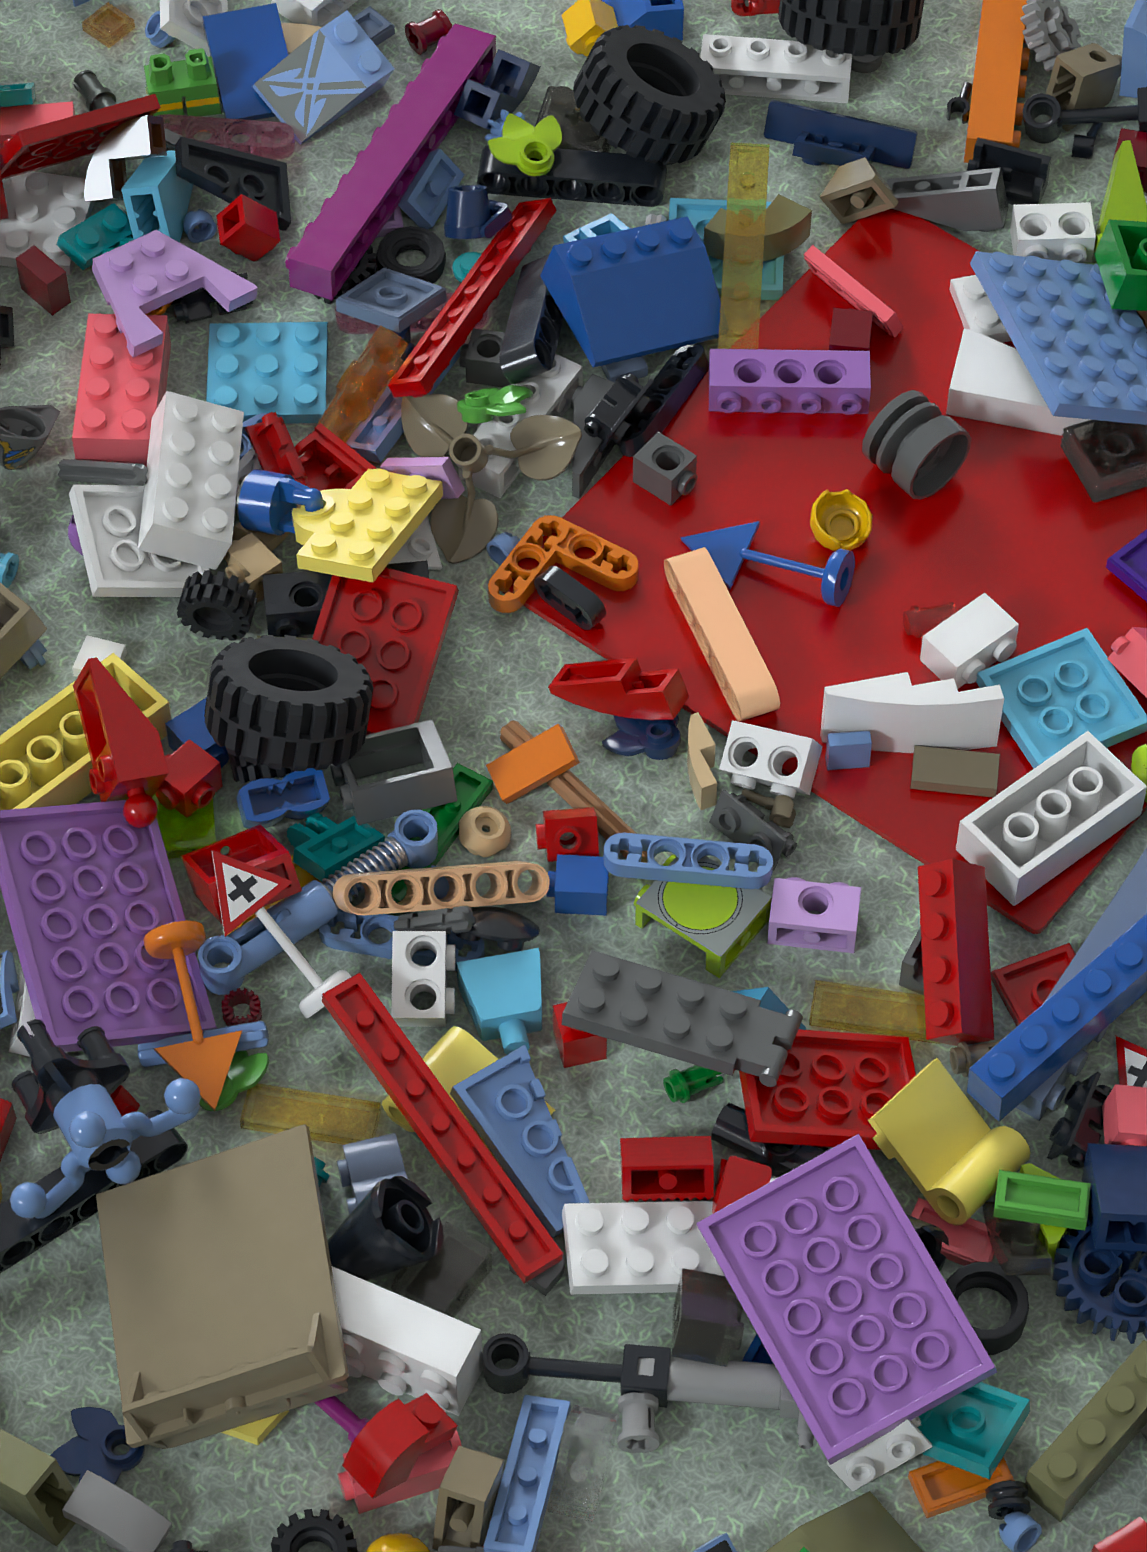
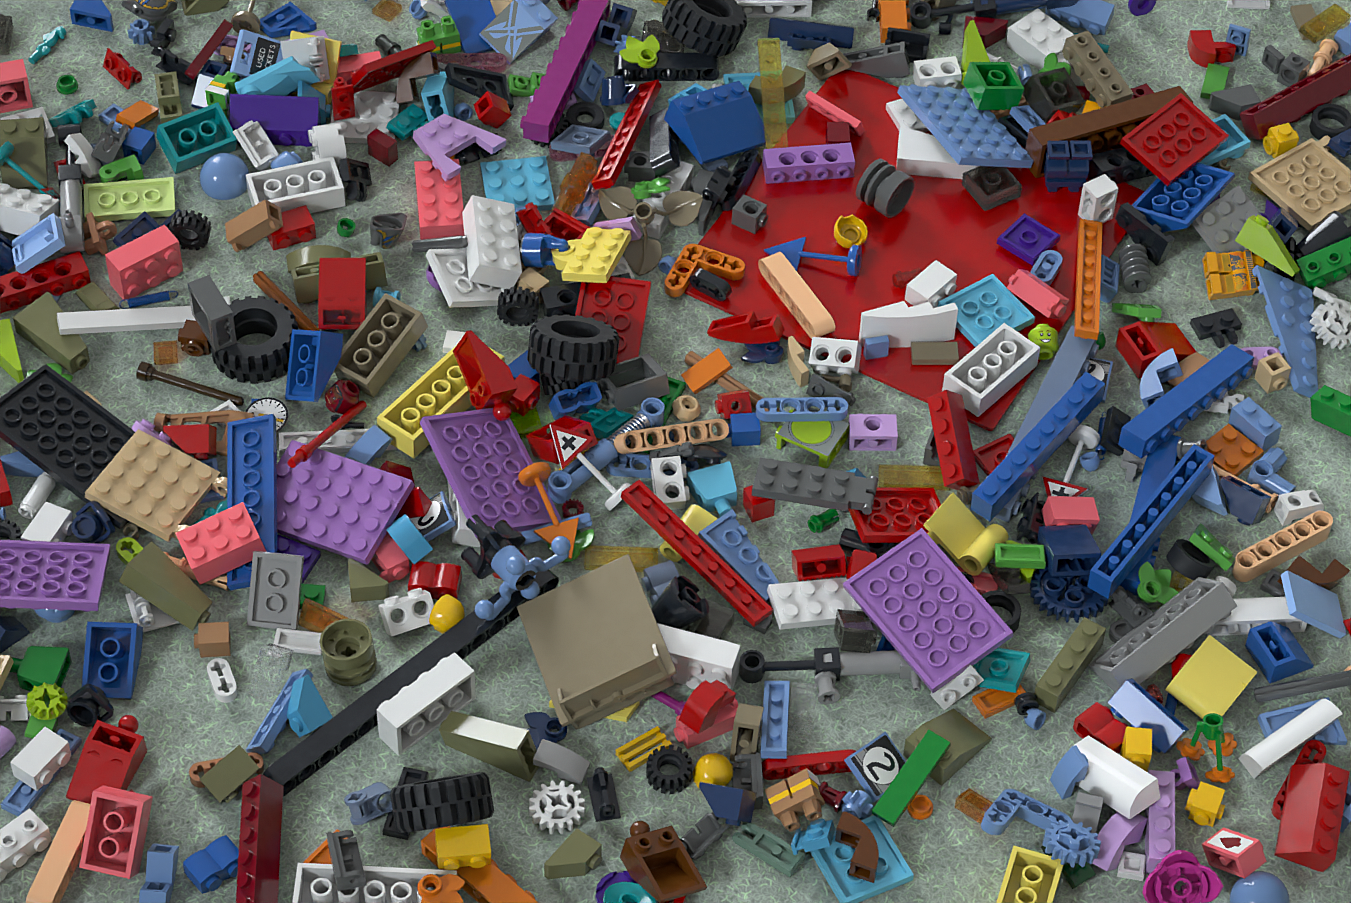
camera: 10 degrees left, 5 degrees down
(269, 1490) = (653, 734): none -> yellow tile
(313, 186) = (524, 86): none -> bright green slope

